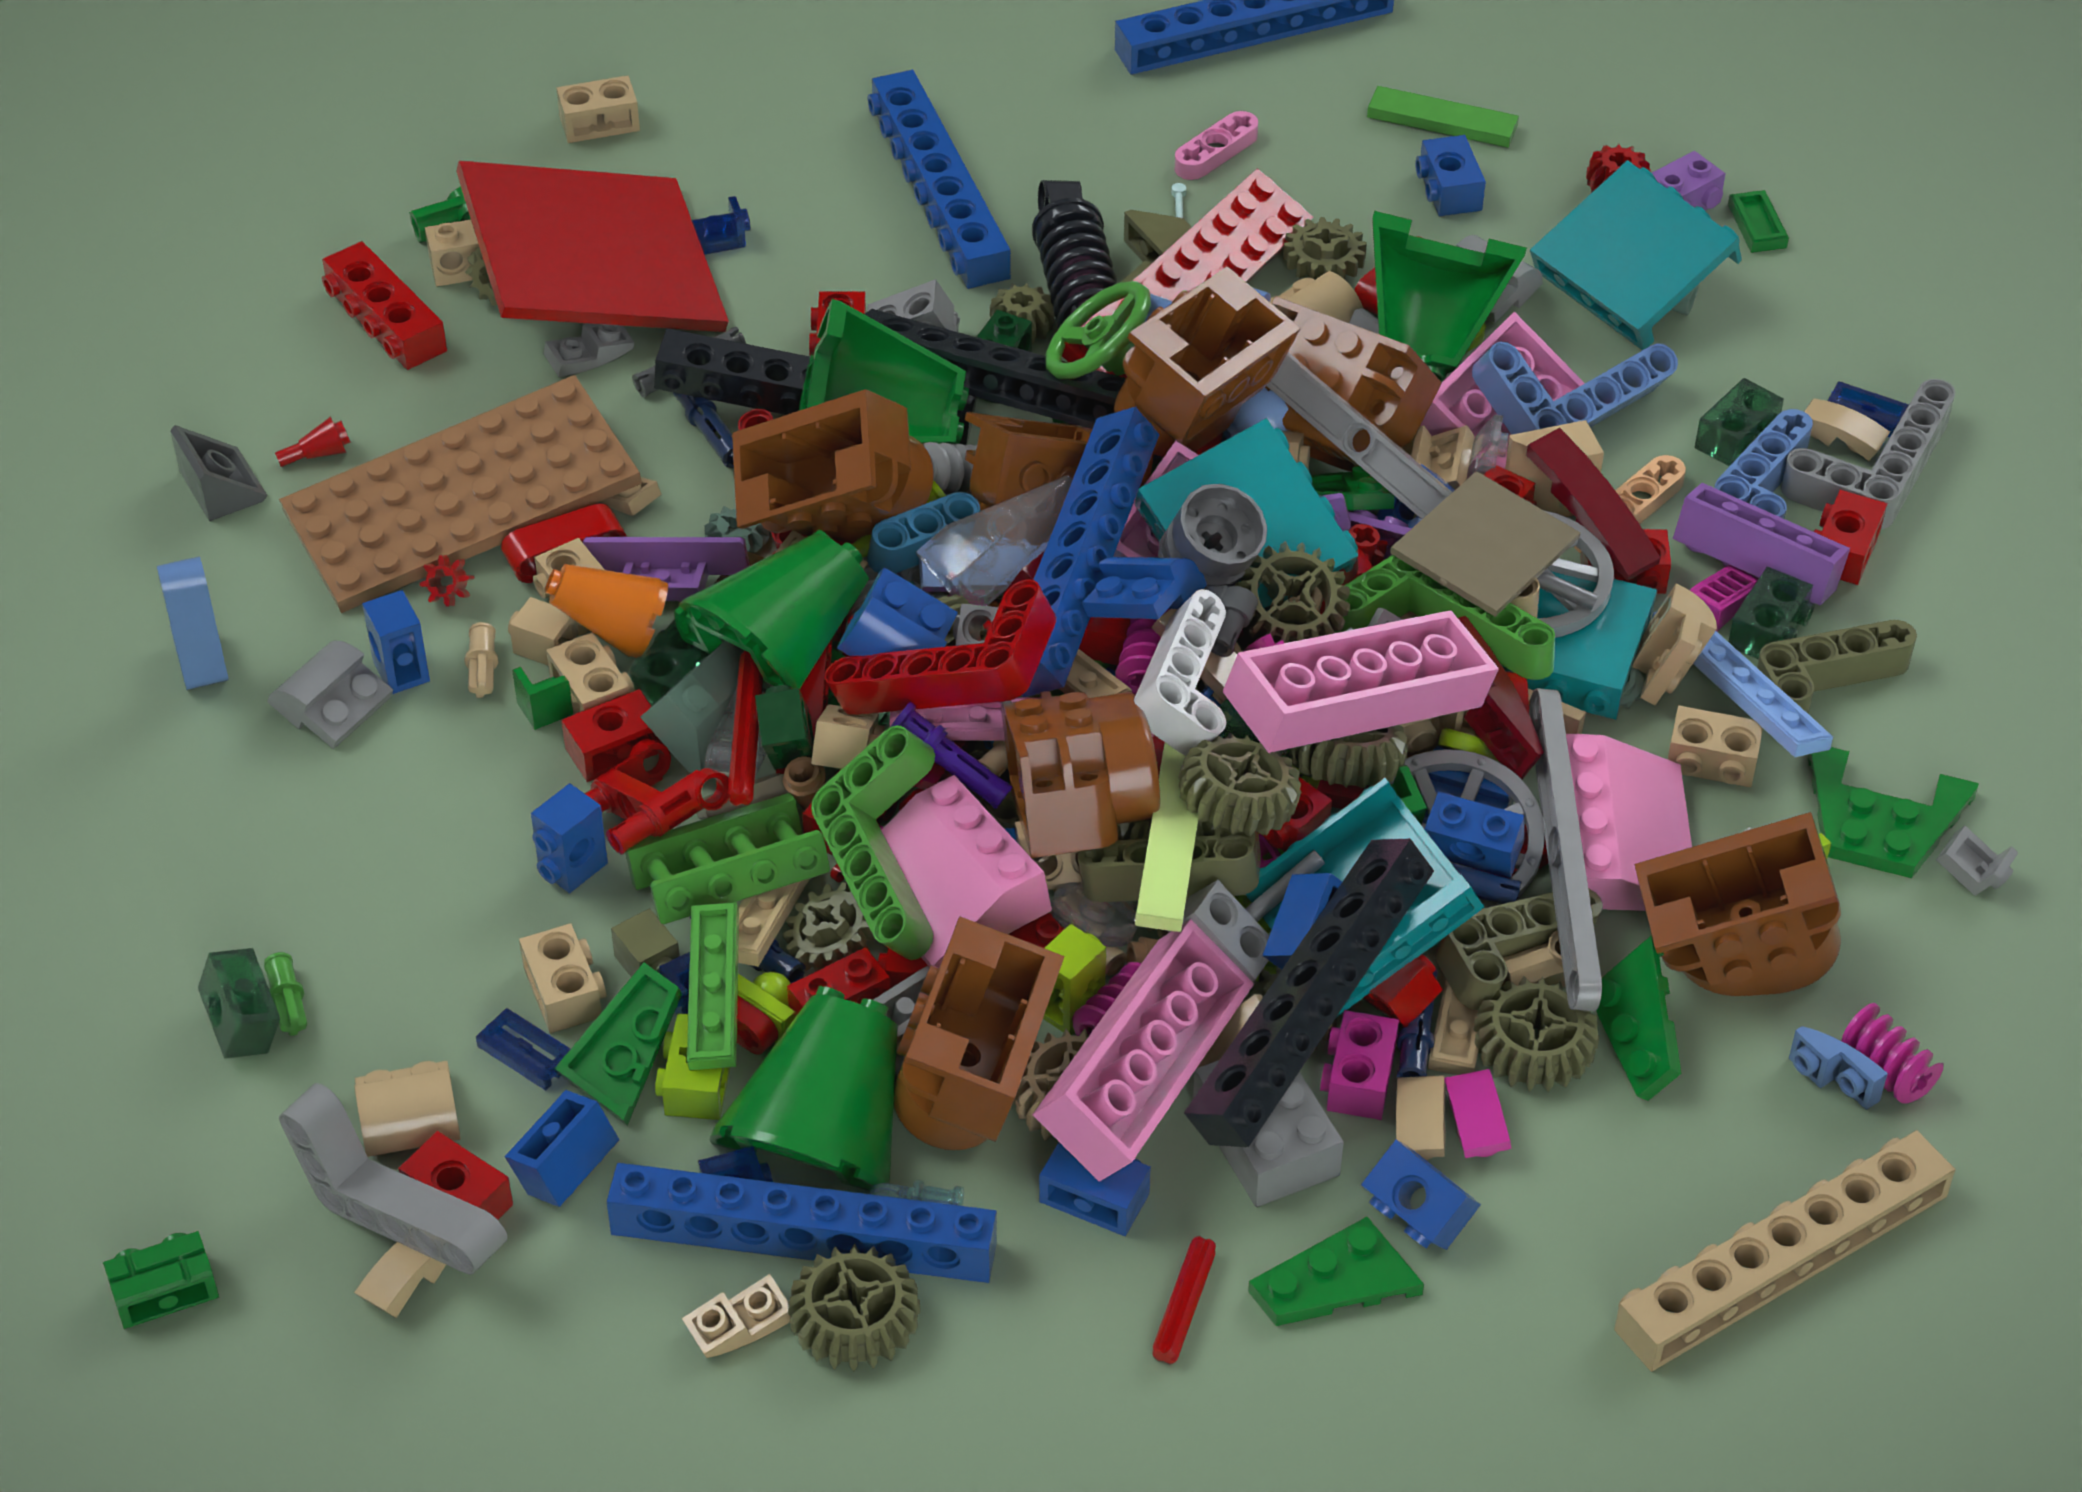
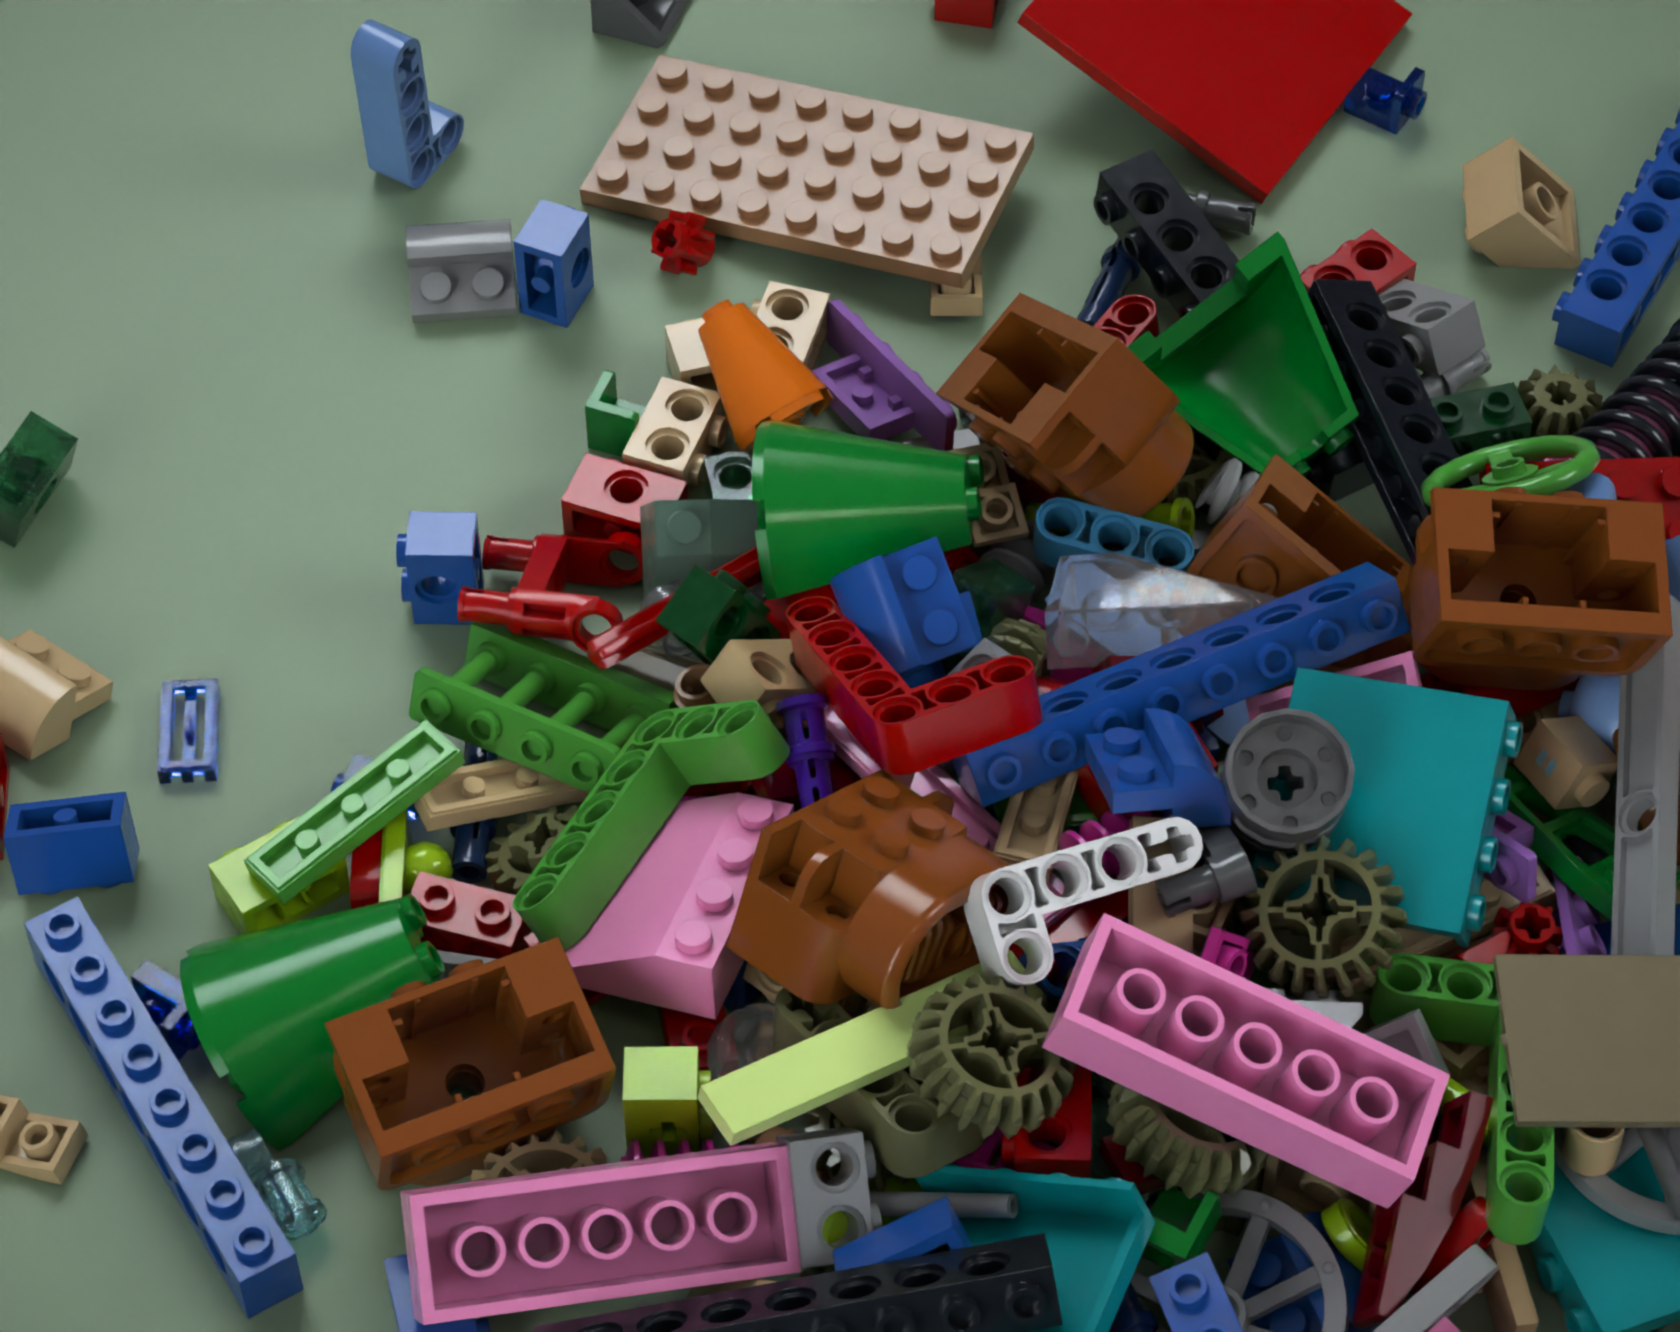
camera: 50 degrees right, 5 degrees up
(286, 992) = (82, 506): bright green axle -> none
(322, 441) = (767, 29): red cone -> none
(481, 659) = (621, 342): tan axle -> none
(530, 541) = (865, 290): red beam -> none
(562, 977) = (287, 692): tan brick -> none
(594, 348) = (1104, 123): light grey slope -> none
(622, 1043) = (244, 796): green wing -> none
(643, 940) = (378, 720): olive brick -> none
(850, 1287) = (100, 1242): olive gear -> none
(868, 234) = (1519, 210): none -> tan slope

